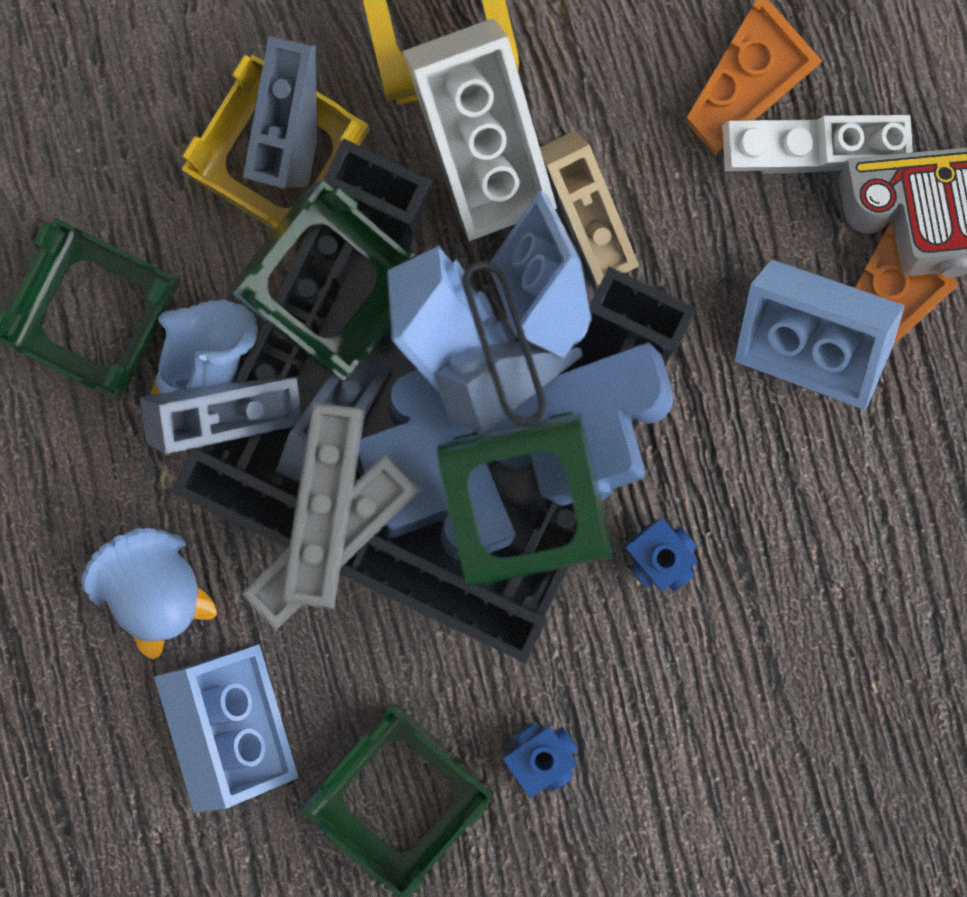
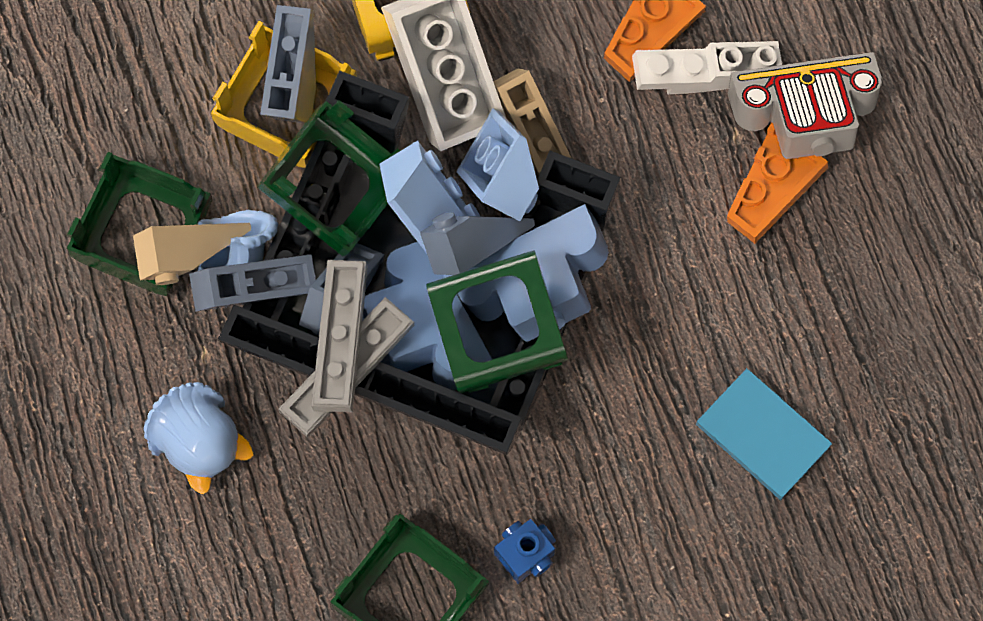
camera: 10 degrees left, 15 degrees down
(132, 366) = (177, 249): none -> tan slope
(226, 729) = (264, 545): light blue slope -> none
(486, 349) = (460, 210): black piece -> none
(644, 551) = (607, 372): blue brick -> none
(817, 333) = (719, 204): light blue slope -> none
(842, 624) = (763, 434): none -> dark azure tile

